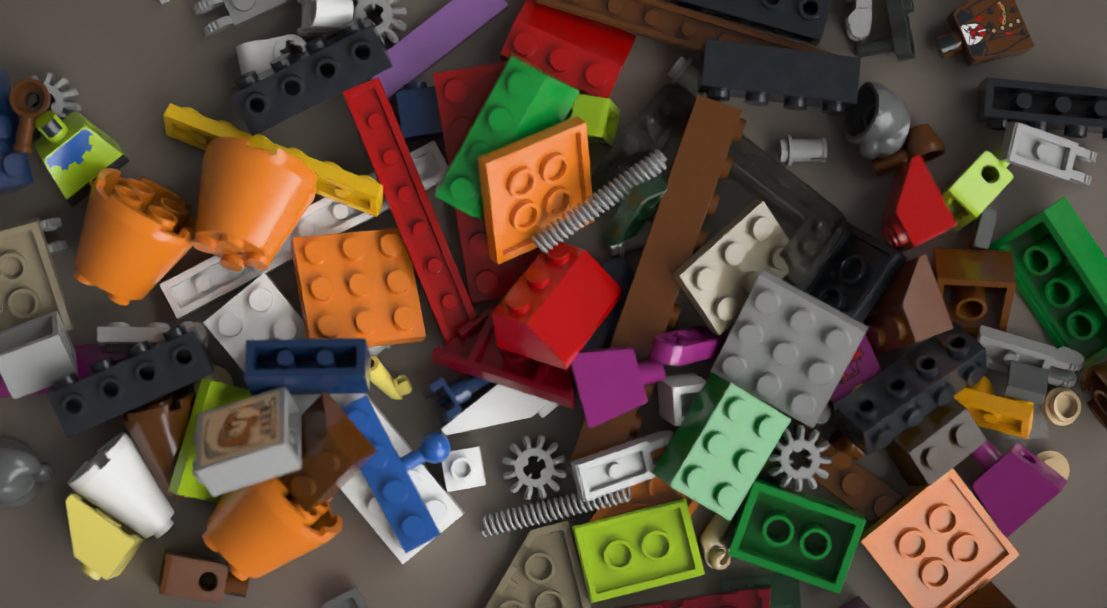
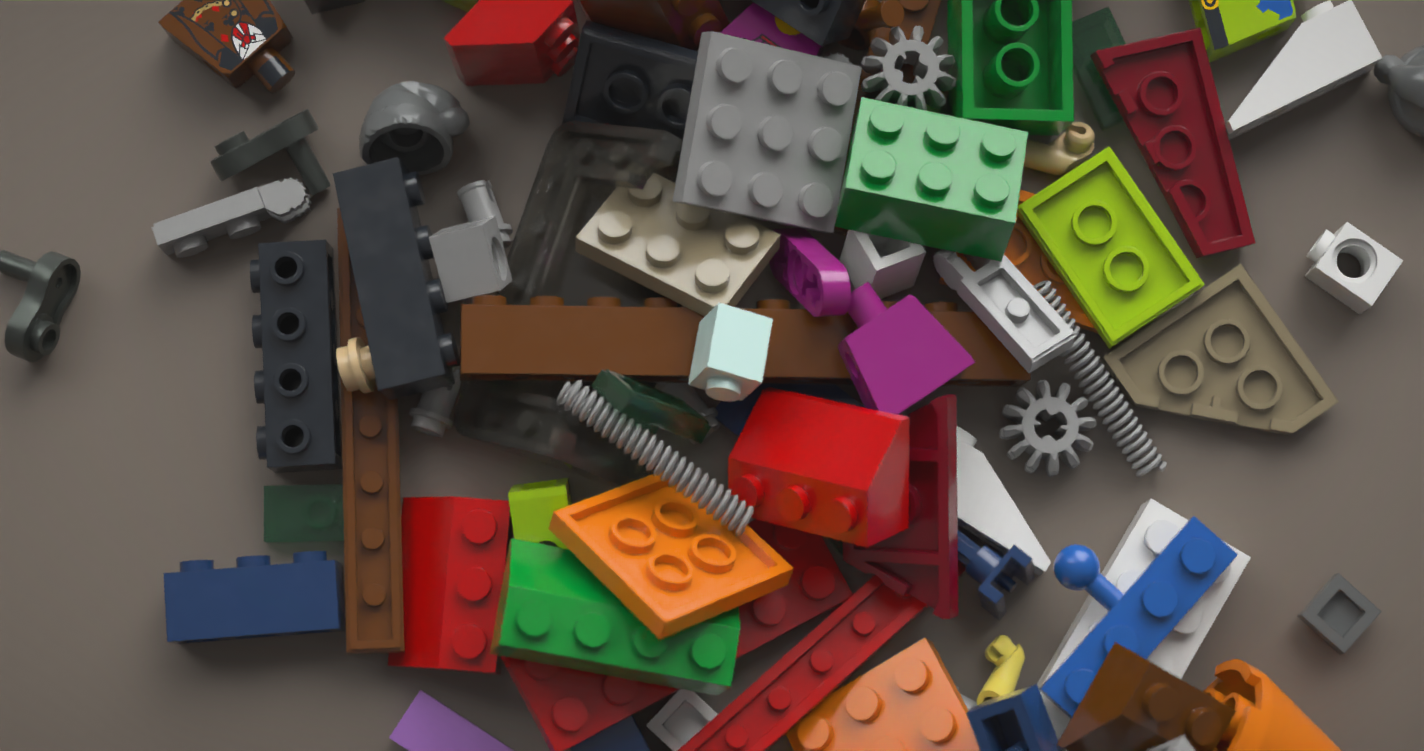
camera: 105 degrees left, 5 degrees down
(464, 469) = (1087, 520): white brick -> none
(648, 270) = (730, 353): none -> light aqua brick
(729, 30) = (356, 366): none -> tan plate
(773, 129) = (470, 260): none -> light grey brick
(920, 141) = (425, 61): reddish brown bar -> none

